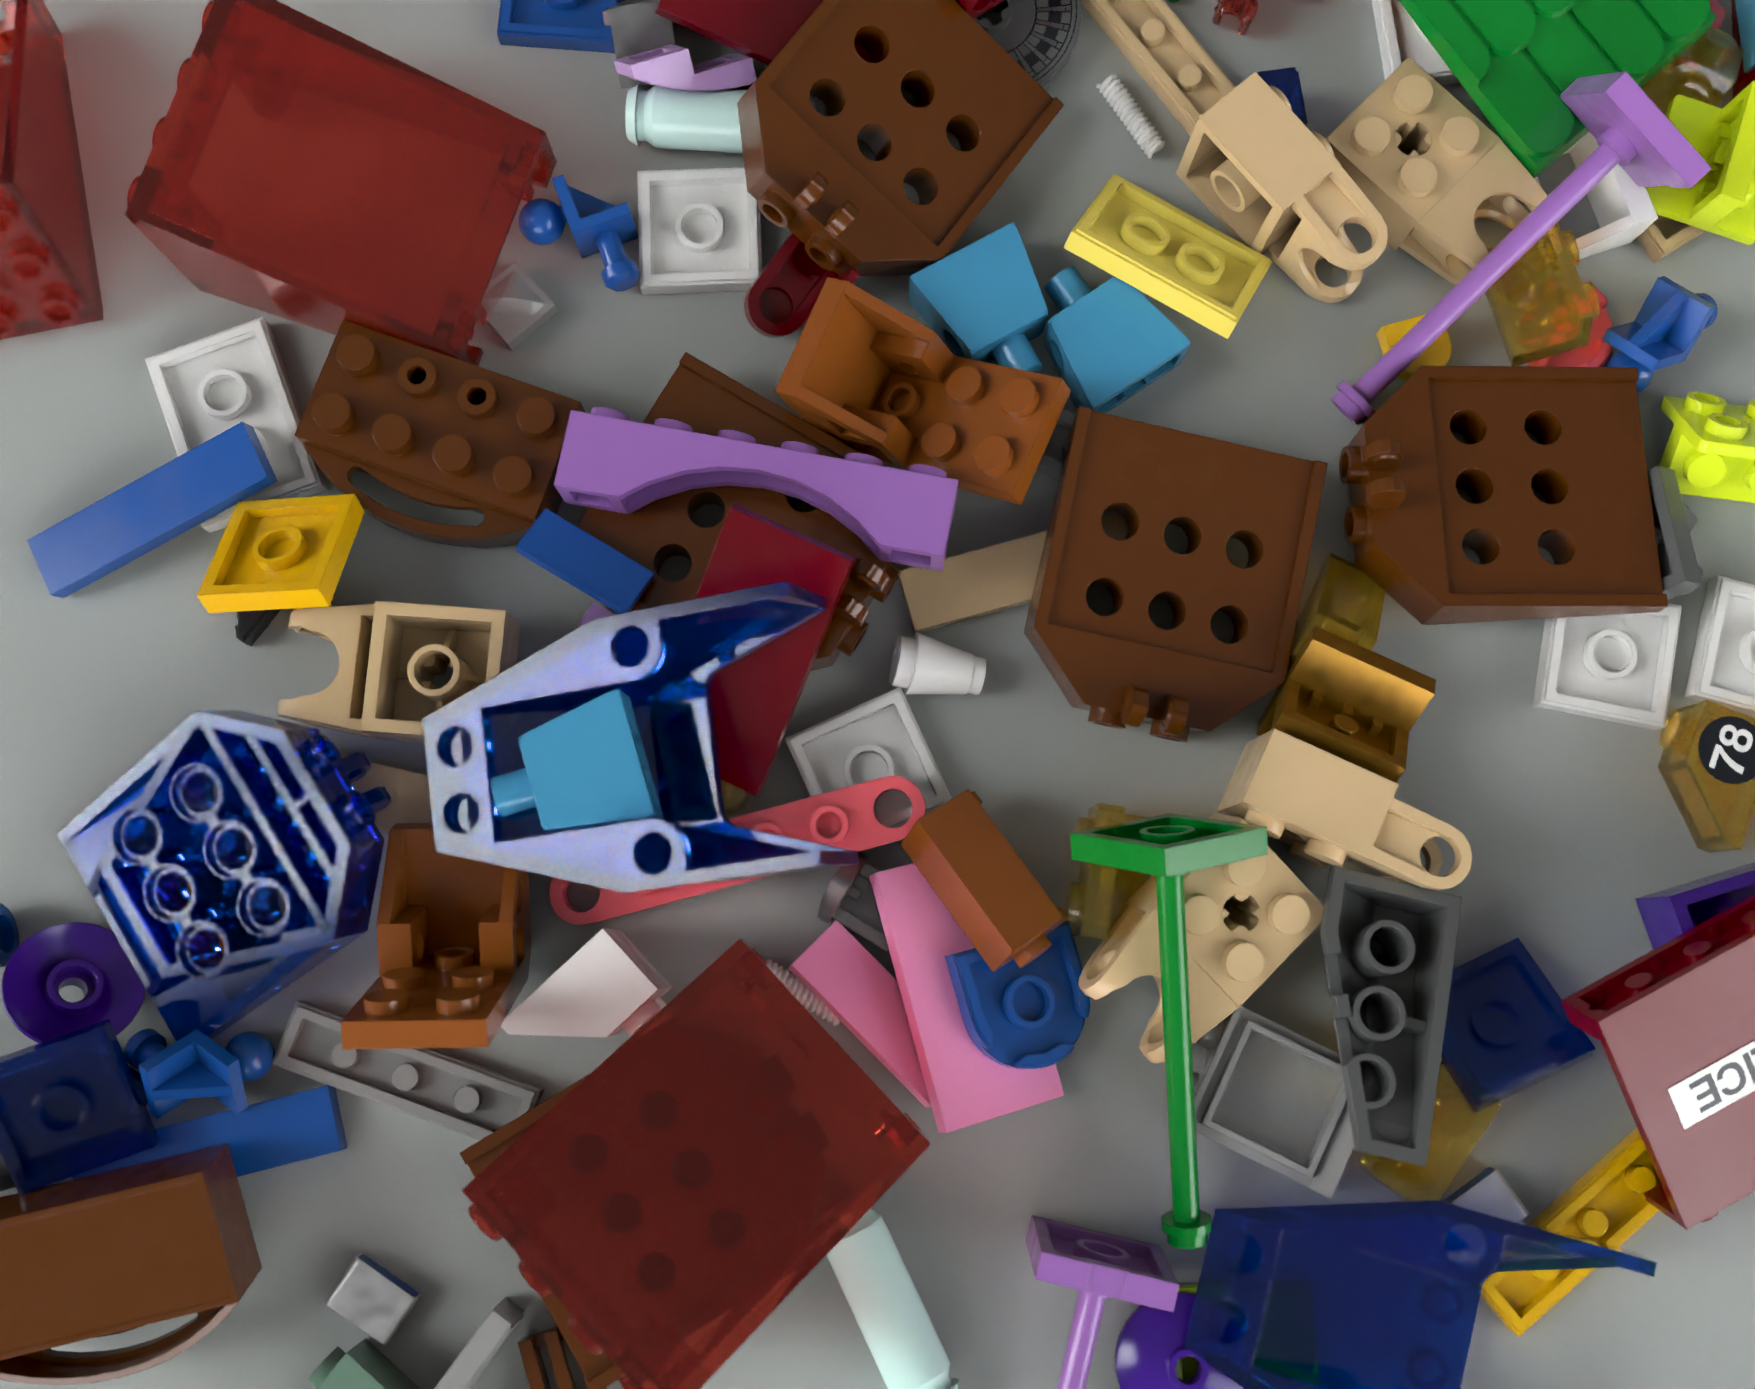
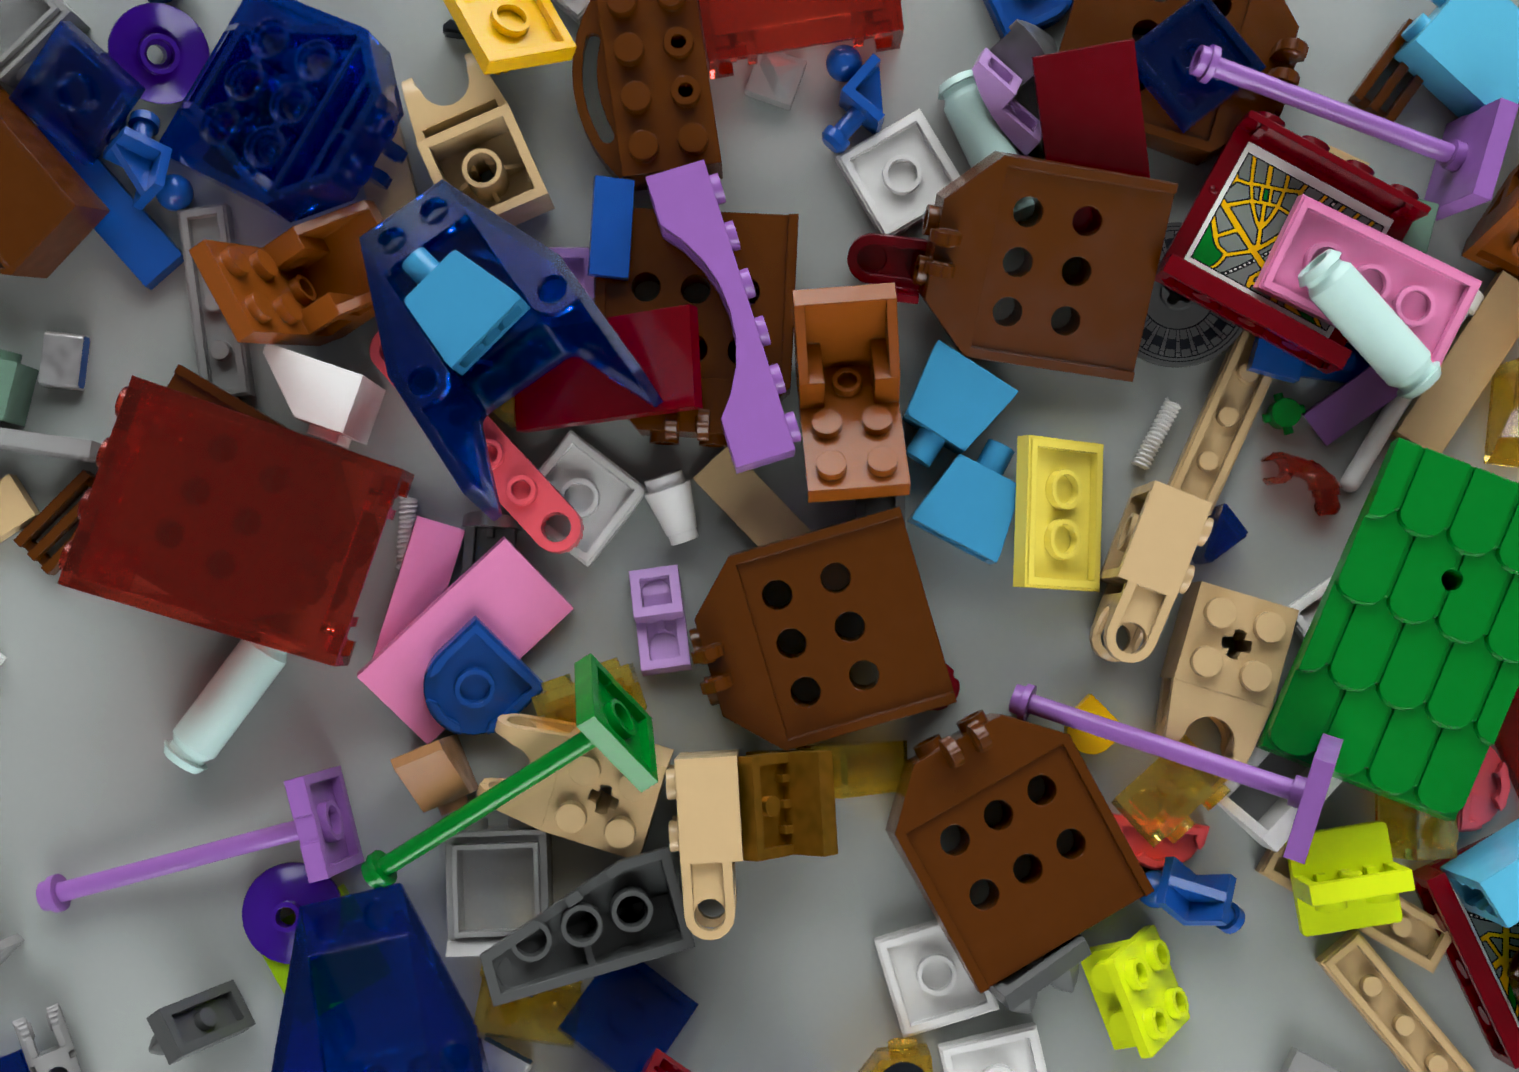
camera: 65 degrees right, 5 degrees up
(983, 882) = (535, 614): dark orange brick -> none
(1056, 752) = (660, 620): none -> lavender slope
(1108, 1098) = (437, 775): none -> medium nougat slope

